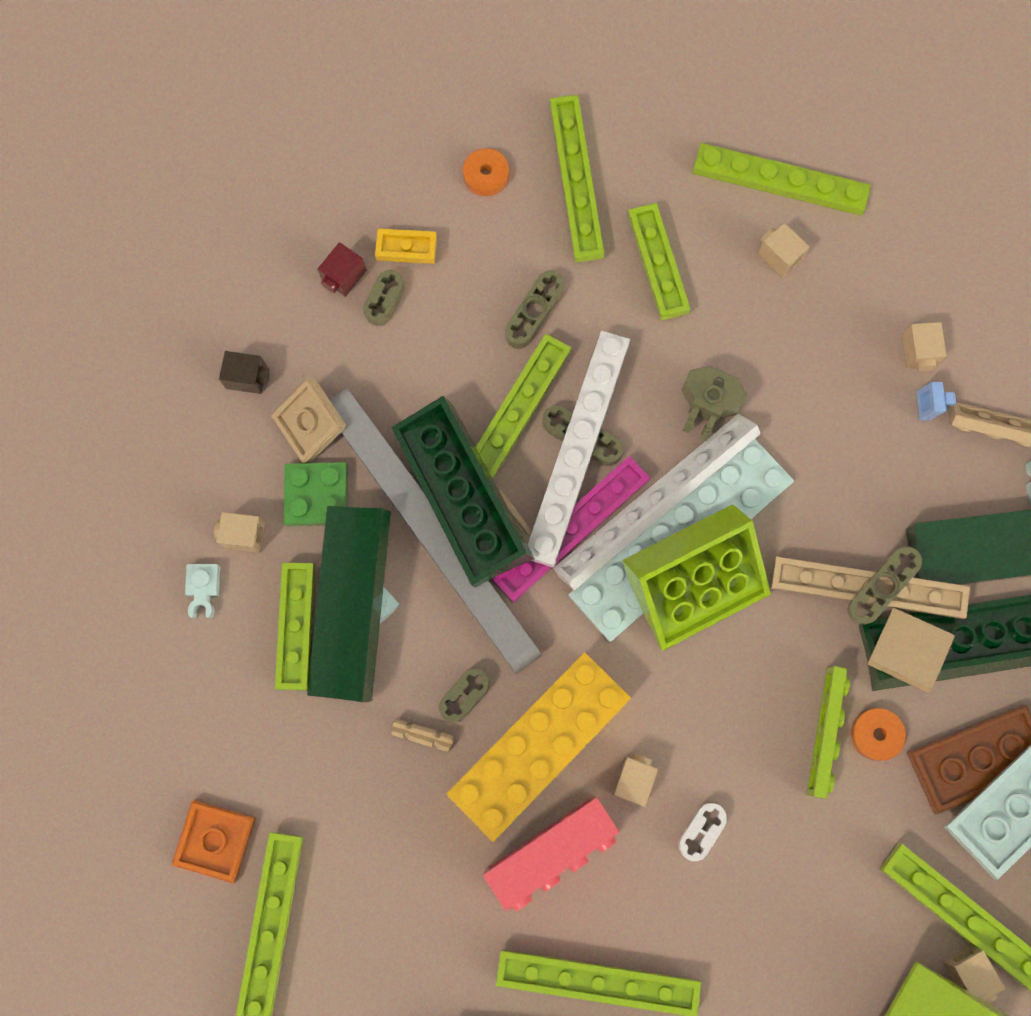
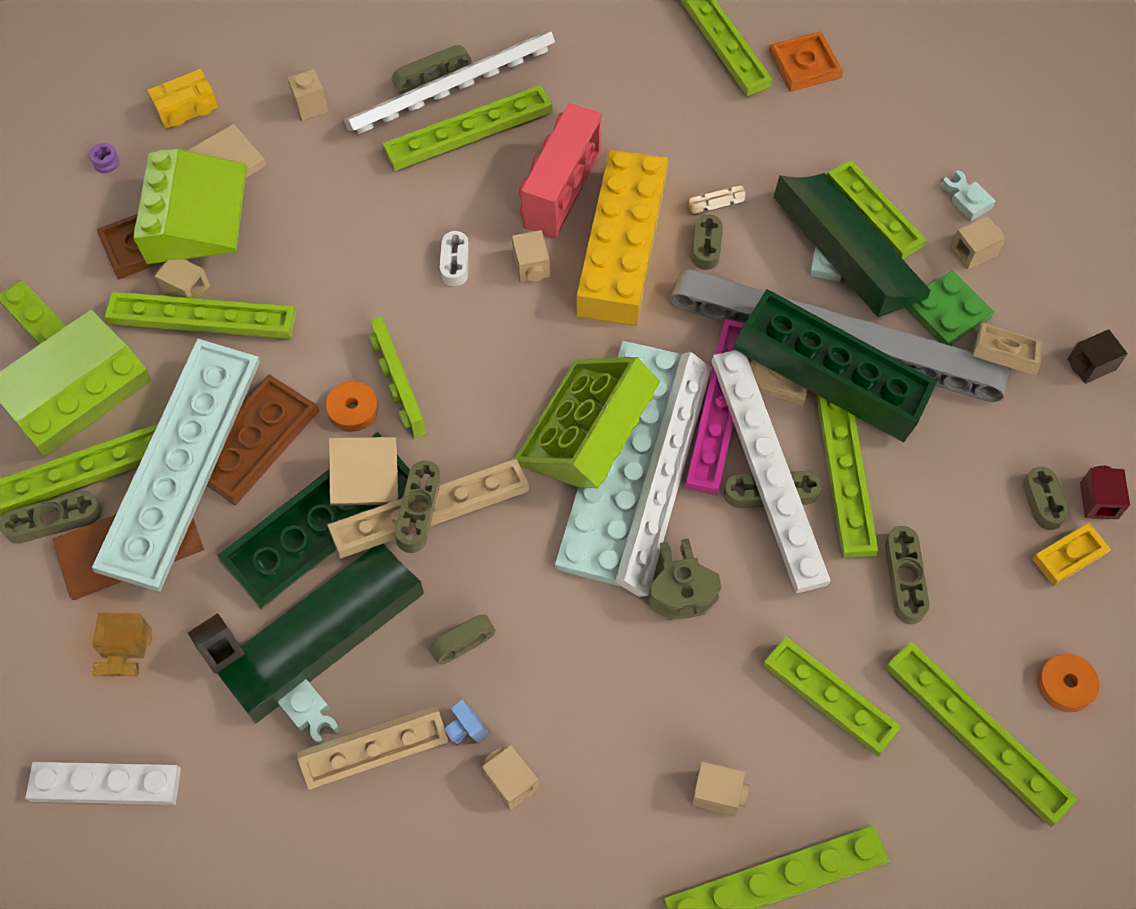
camera: 145 degrees right, 15 degrees down
(901, 466) = (462, 639): none -> olive beam

